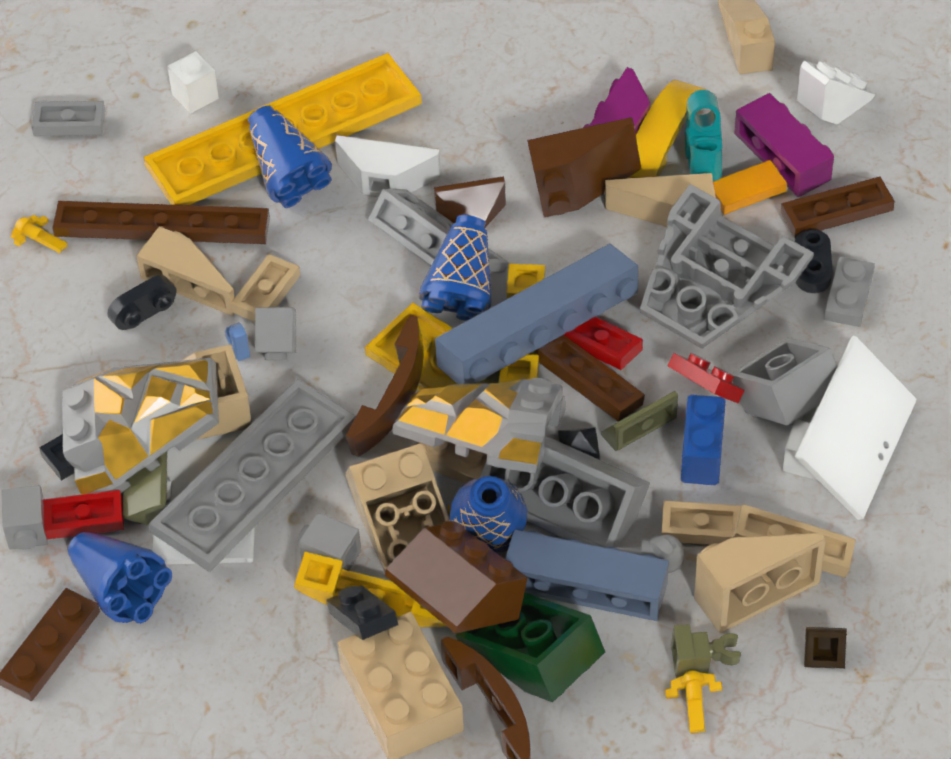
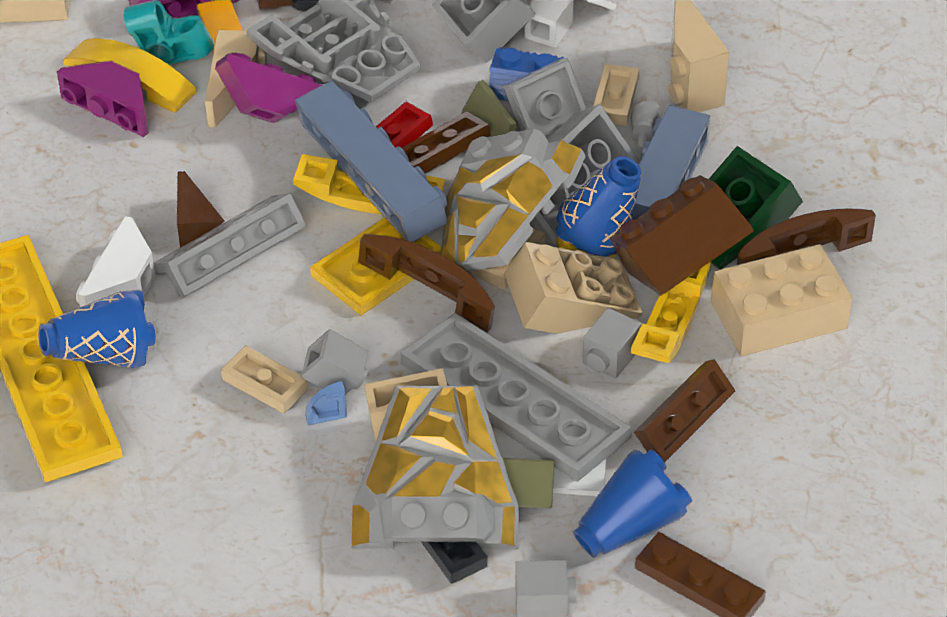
camera: 85 degrees left, 5 degrees down
(27, 227) = (113, 593): yellow piece -> none
(83, 513) = (541, 532): red plate -> none
(140, 221) = (141, 468): reddish brown plate -> none
(142, 302) = (255, 474): black plate -> none
(186, 267) = (220, 443): tan slope -> none
(245, 613) = (685, 410): none -> reddish brown plate
(361, 612) = (710, 306): black plate -> none
(460, 272) = (304, 204): blue cone -> none
(576, 163) = (187, 118): reddish brown slope -> none
(629, 219) = (262, 89): none -> magenta slope
(655, 452) = (545, 97): none -> light grey tile
(693, 683) = (781, 120): yellow piece -> none
(695, 651) = (752, 112): olive piece -> none
(716, 381) = (473, 53): plate -> none
(757, 522) = (645, 38): tan plate -> none
(825, 647) = (752, 37): dark brown slope -> none

